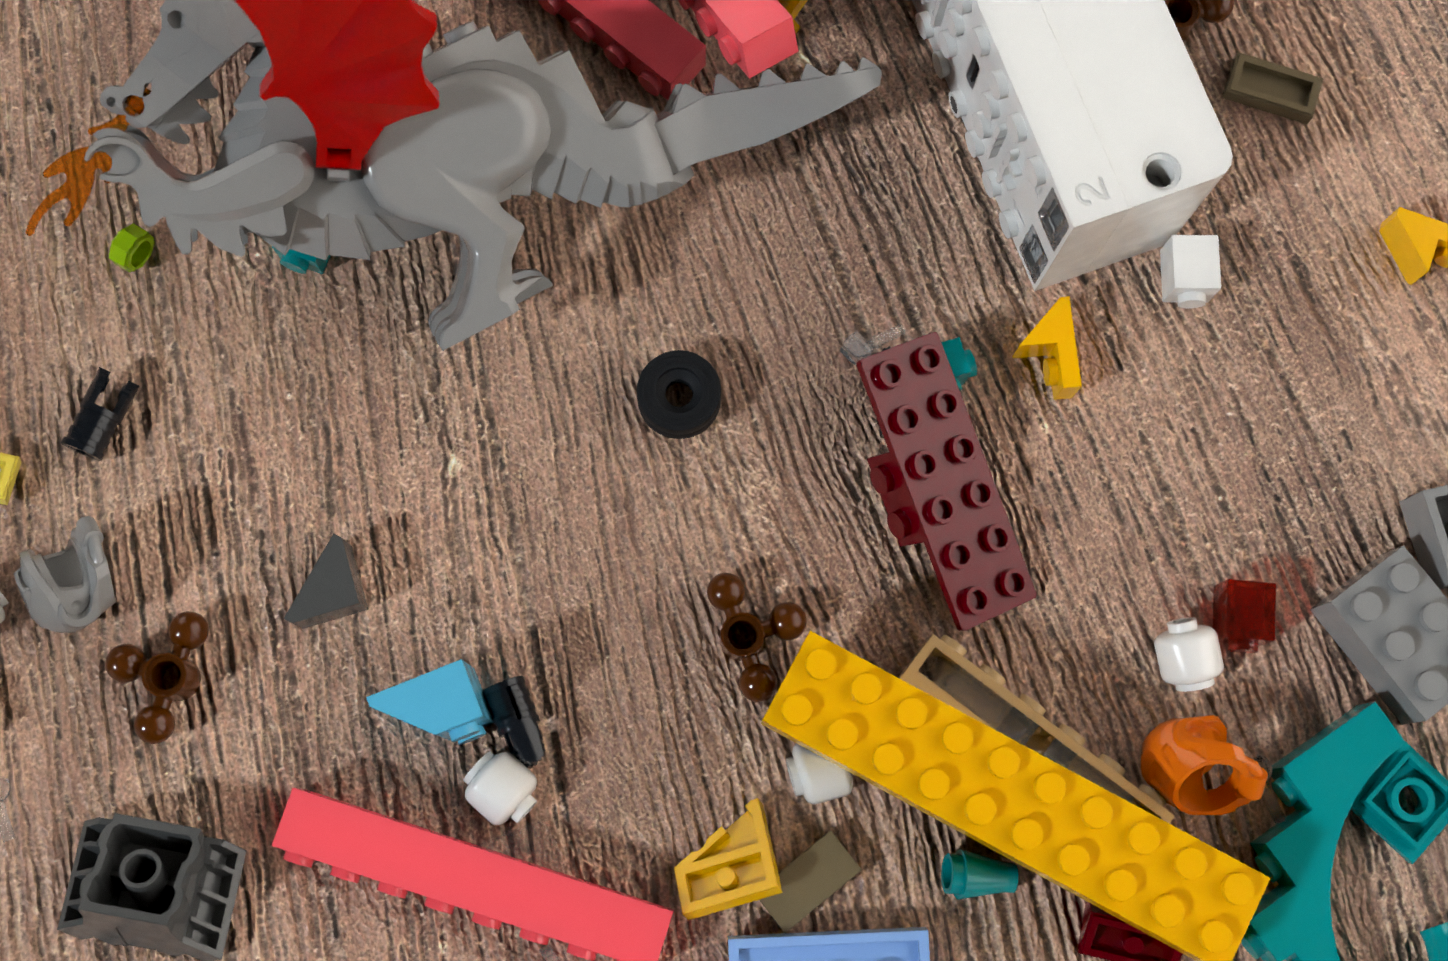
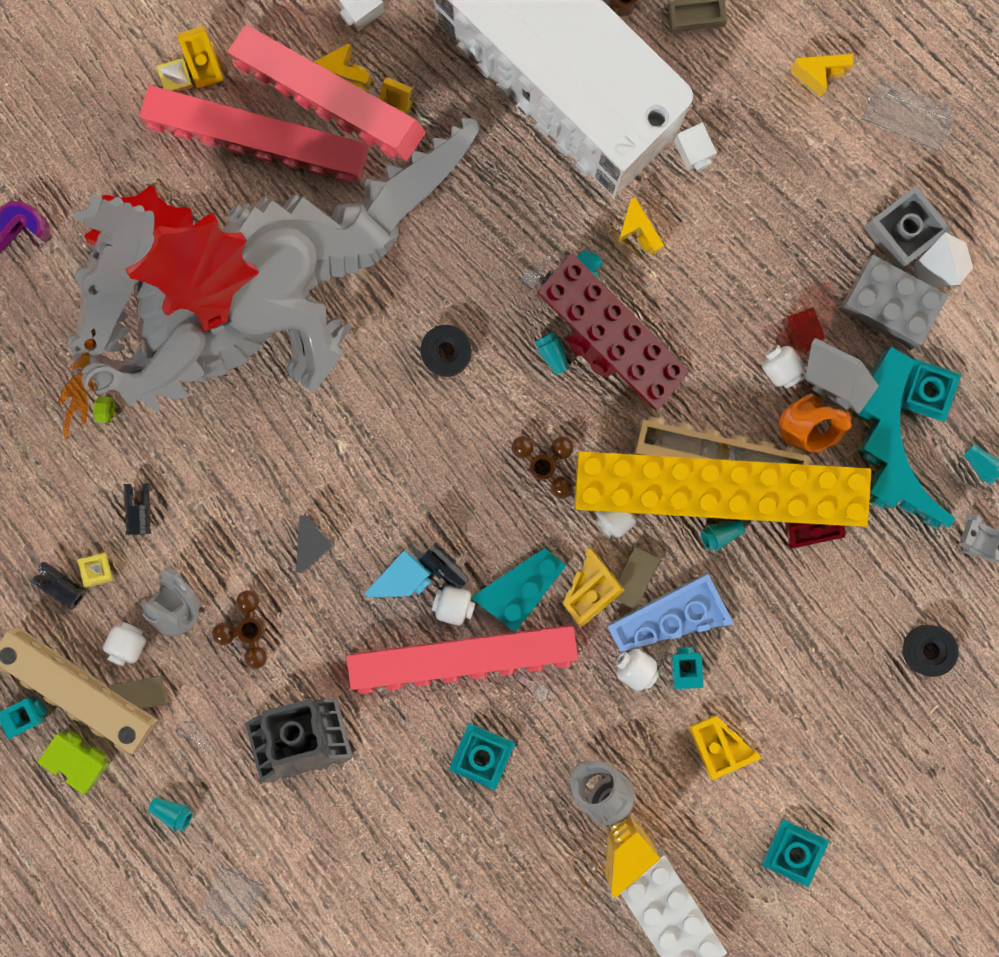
camera: 20 degrees left, 10 degrees up
(619, 813) = (520, 590): none -> teal wing
(839, 470) = (552, 352): none -> teal cone
(1274, 709) = (839, 377): none -> light grey slope

